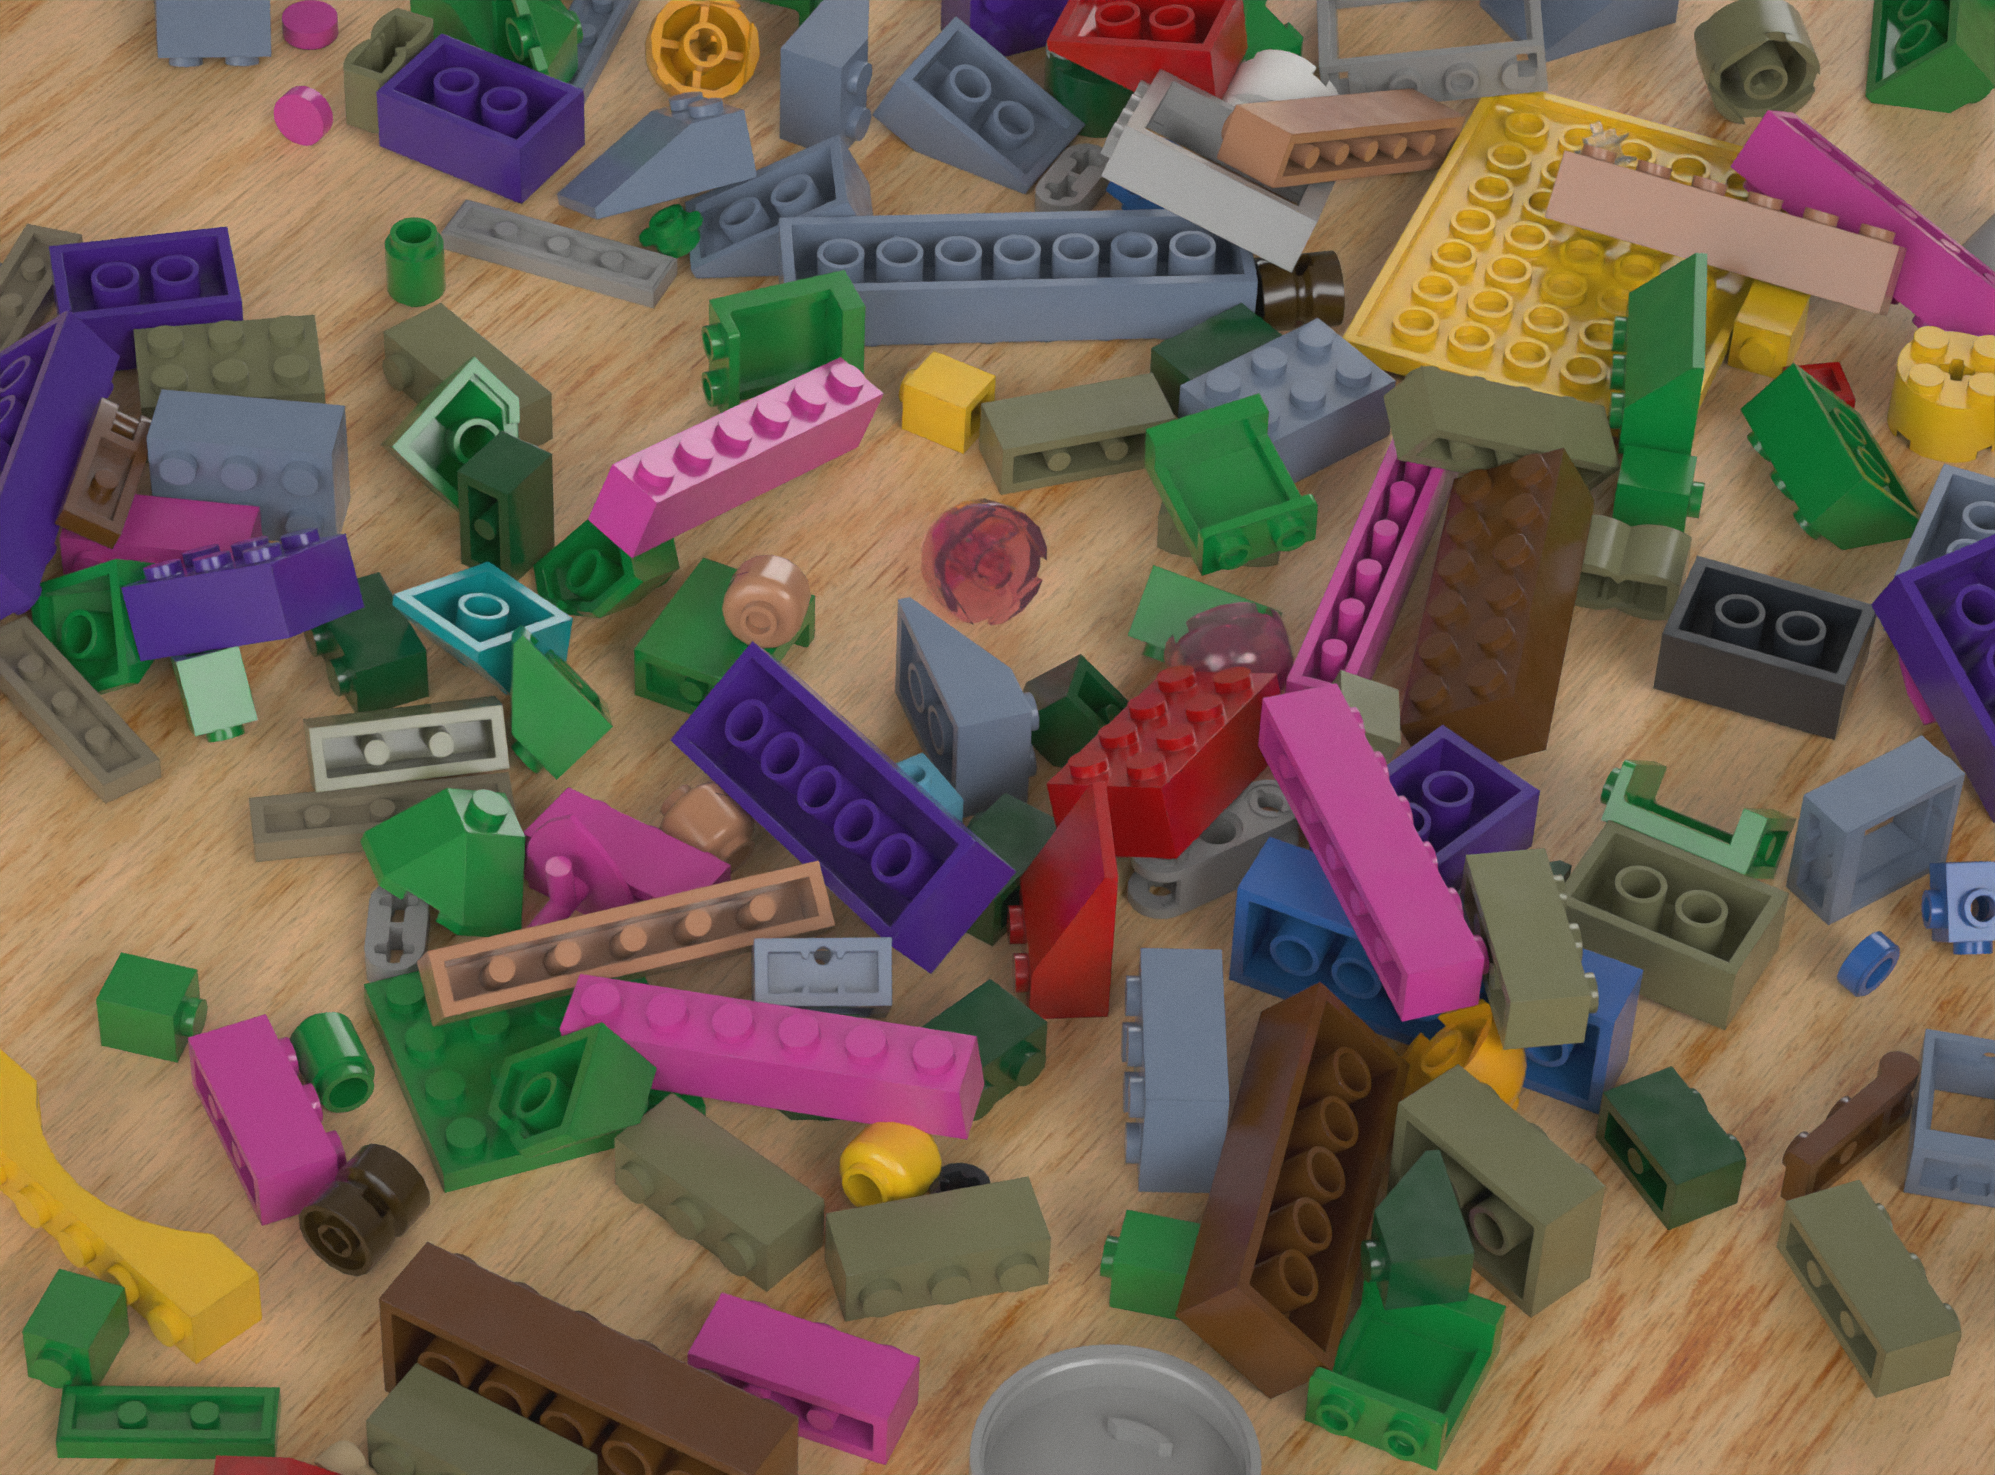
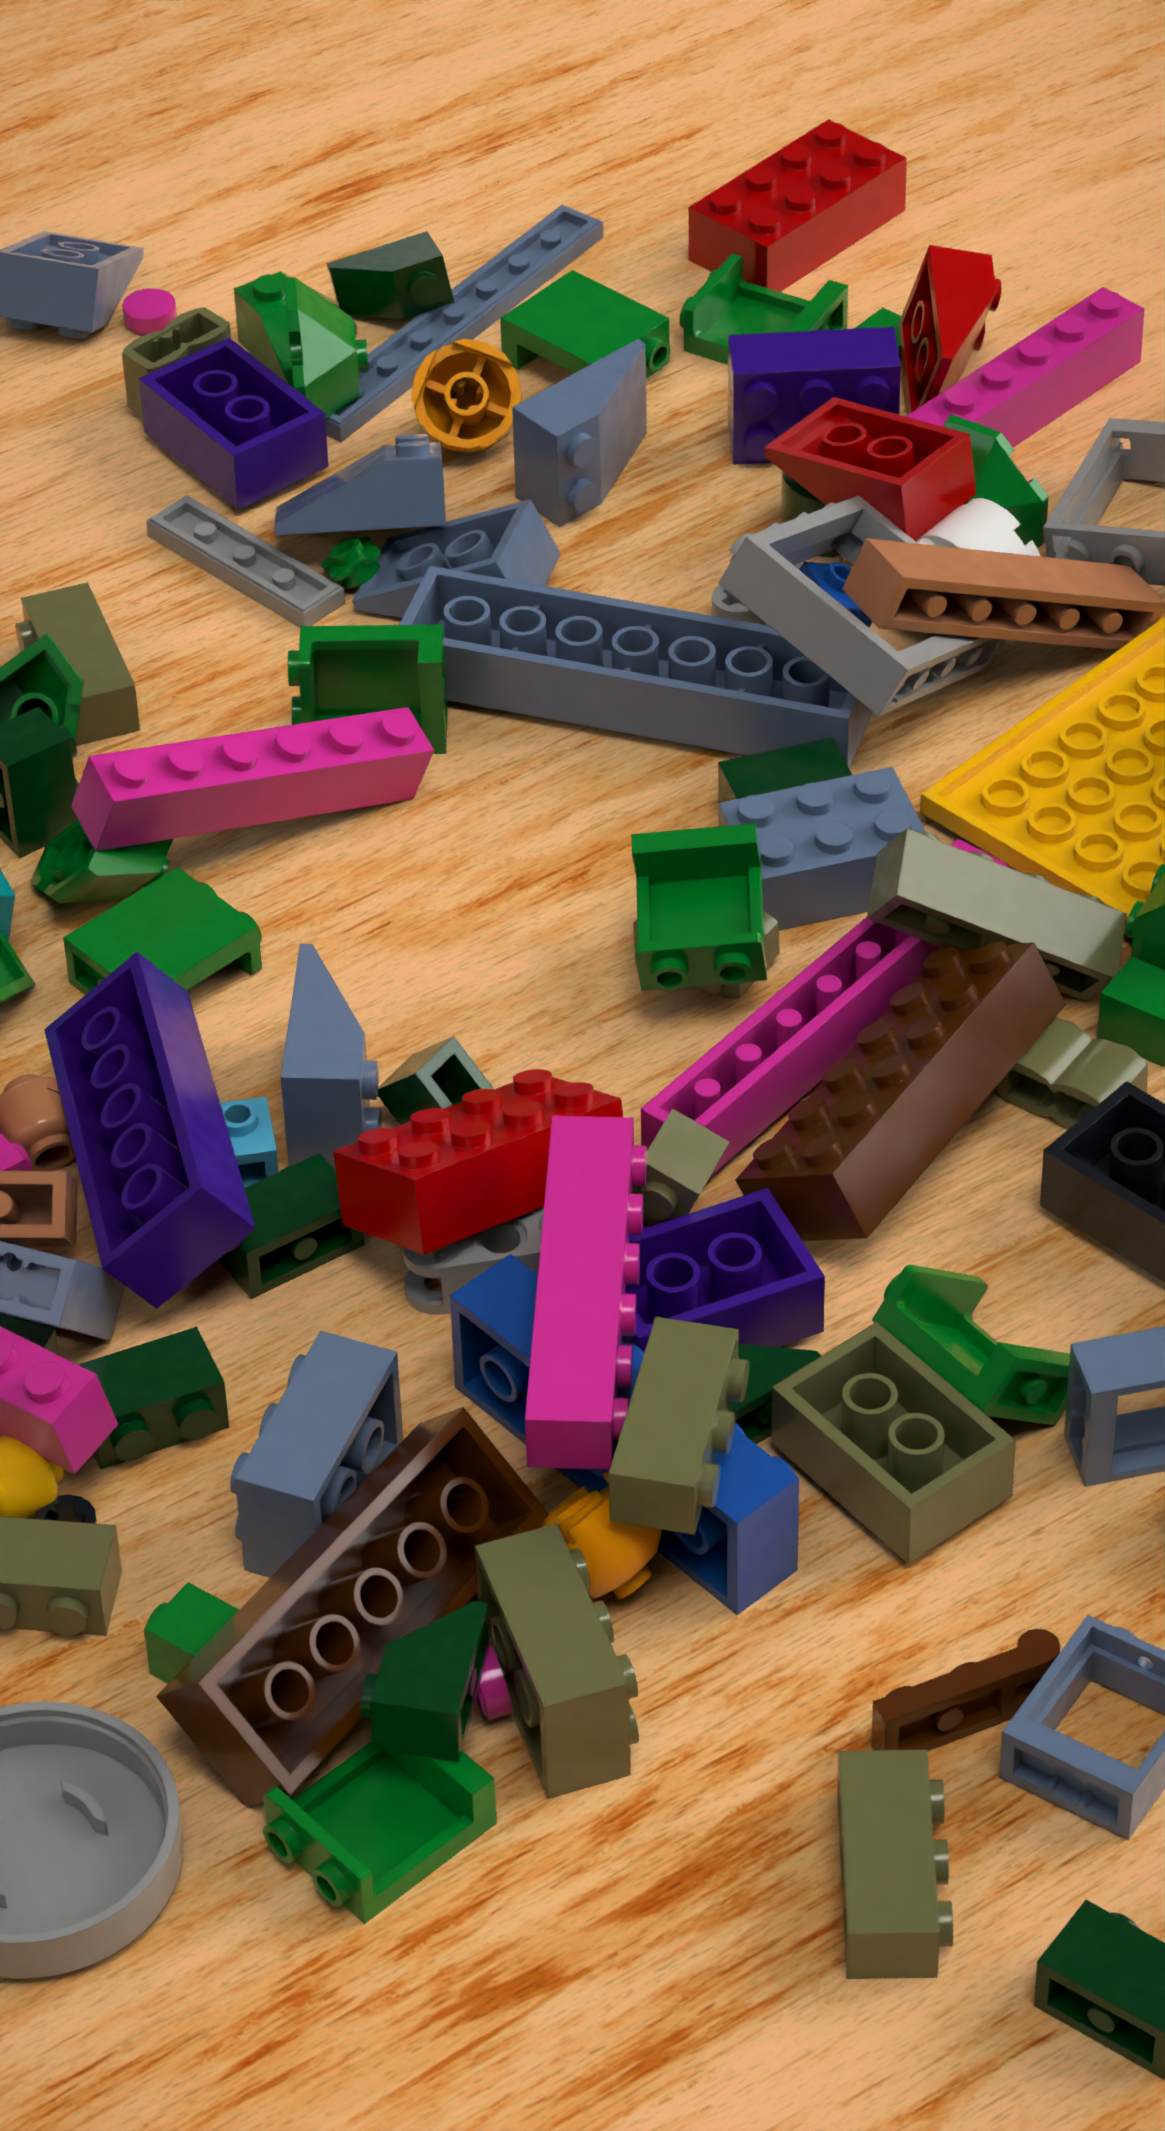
camera: 25 degrees right, 0 degrees up
(303, 115) = (87, 390): dark pink tile -> none
(415, 262) = (94, 541): green brick -> none
(766, 595) = (192, 919): nougat head -> none
(945, 401) = (509, 773): yellow brick -> none
(977, 111) = (691, 497): sand blue slope -> none
(983, 561) = (440, 930): clear pink cylinder -> none
(1068, 916) = (306, 1286): red slope -> none
(1070, 432) = (590, 824): olive brick -> none
(1169, 603) = (611, 1027): green slope -> none
(1234, 638) = (617, 1063): clear pink cylinder -> none
(1303, 295) = (904, 740): dark brown wheel -> none
(1670, 1147) = (774, 1666): dark green brick -> none
(1868, 964) = (1087, 1535): blue tile -> none

